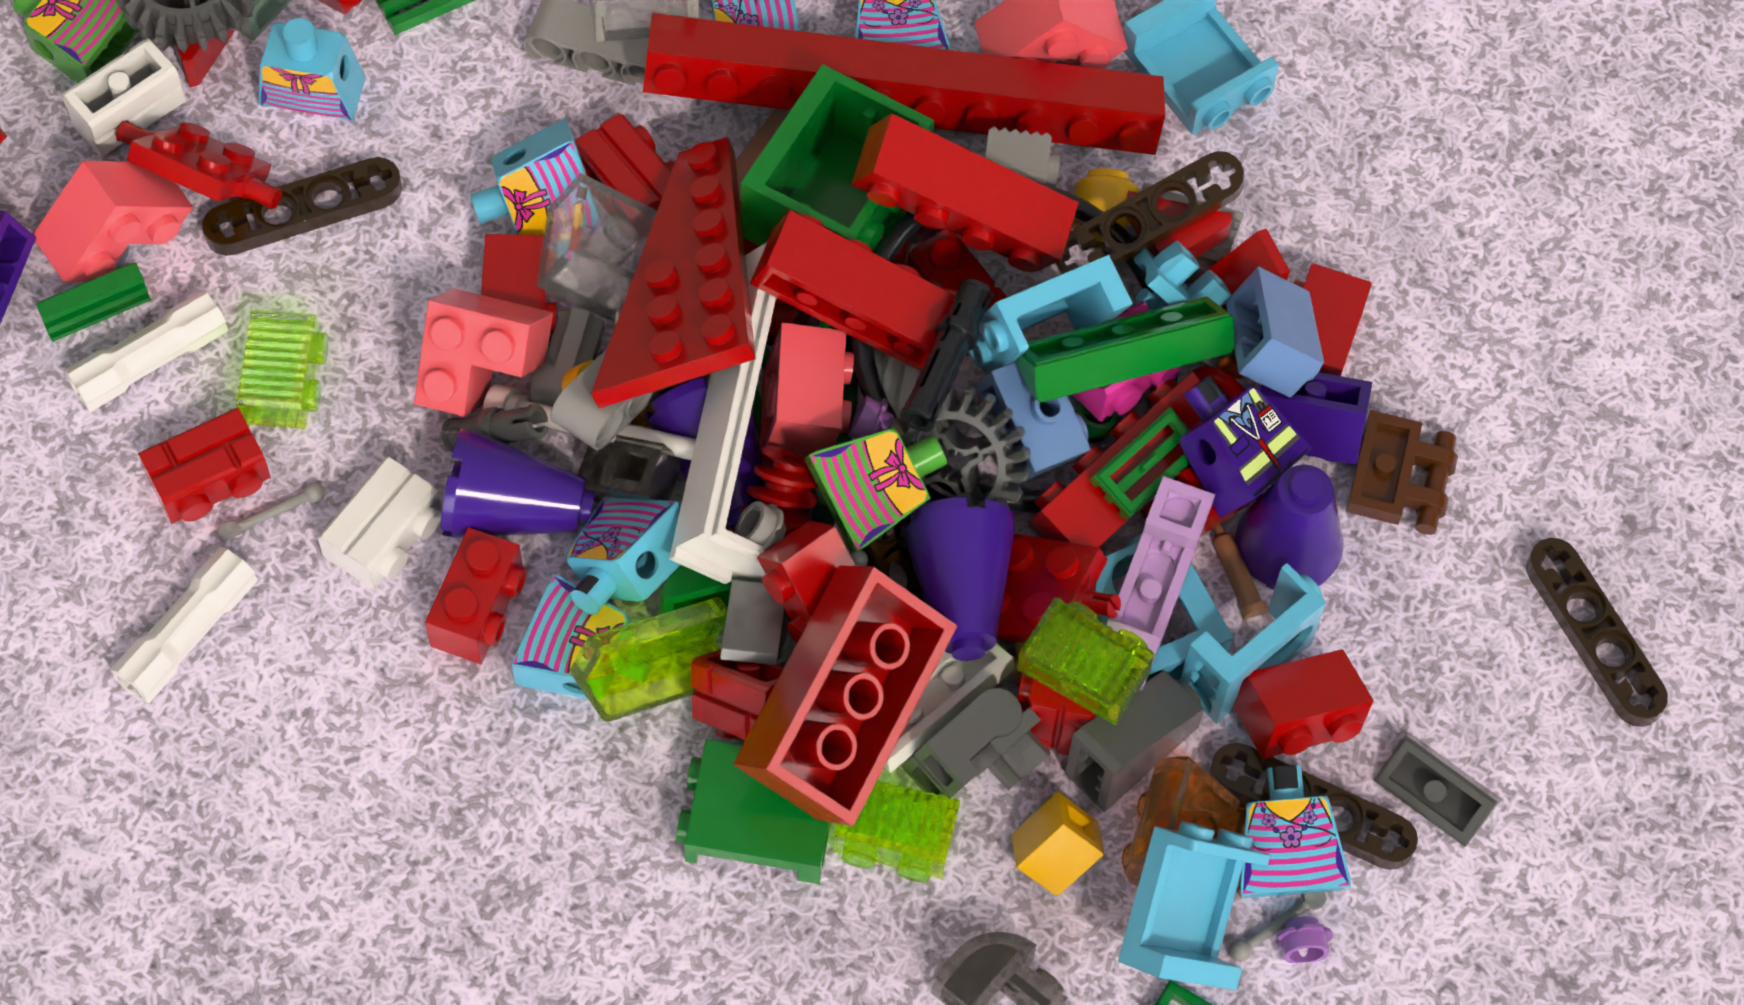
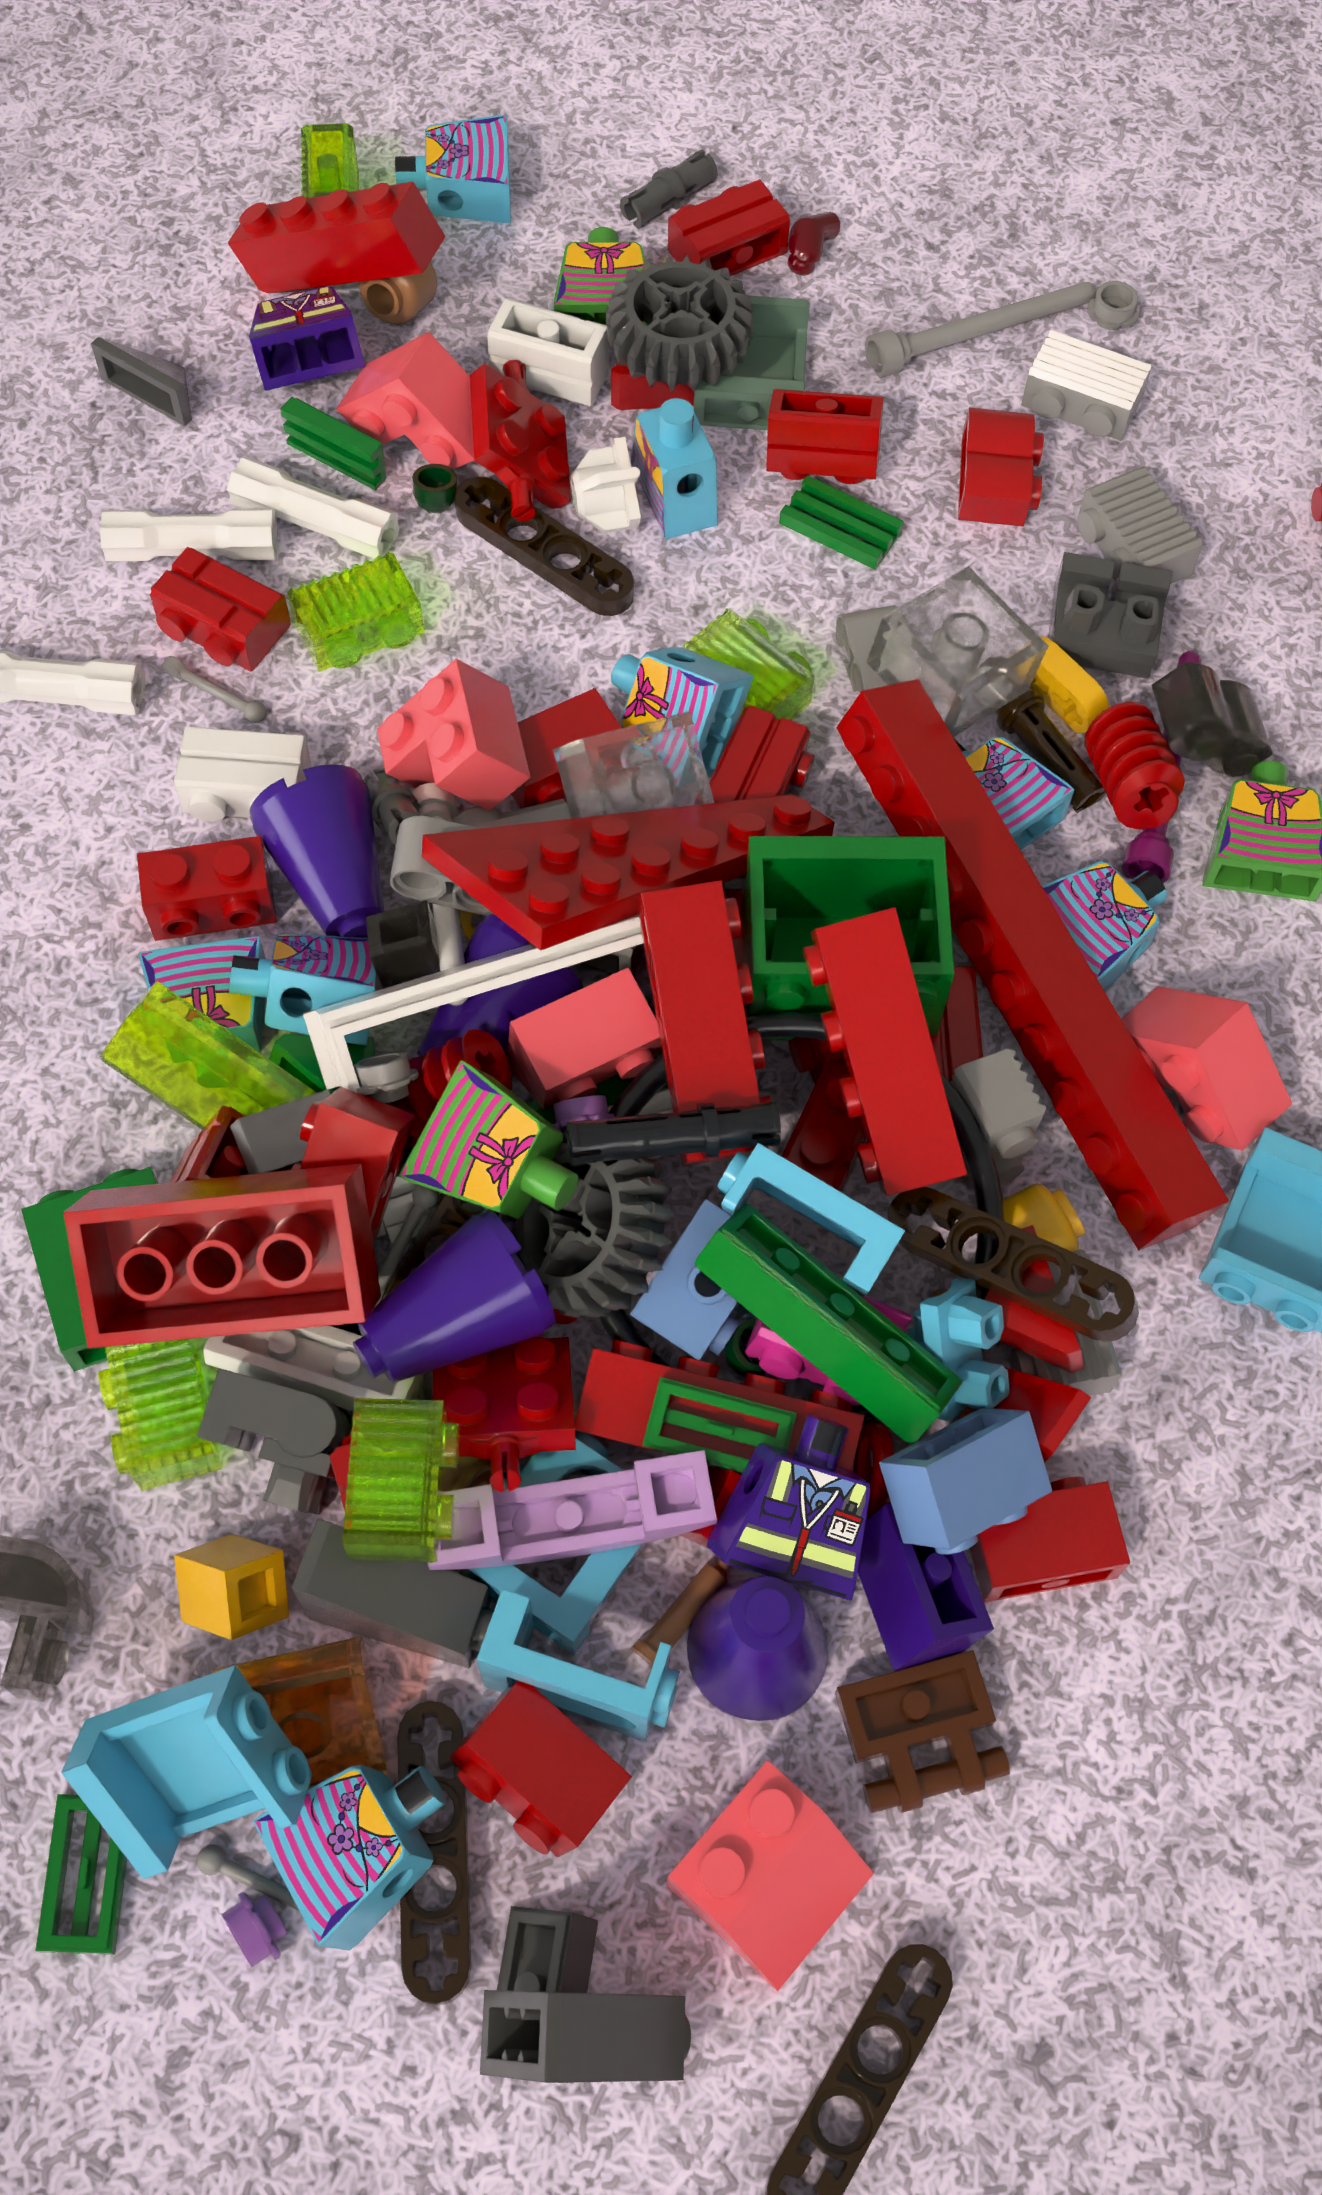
camera: 60 degrees right, 0 degrees up
(84, 486) = (146, 535): none -> white axle
(190, 252) = (434, 487): none -> dark green hinge
(286, 130) = (606, 489): none -> white piece
(510, 119) = (780, 680): none -> clear neon green brick
(1439, 610) = (770, 1875): none -> coral slope
(1490, 761) = (583, 2036): none -> dark grey slope

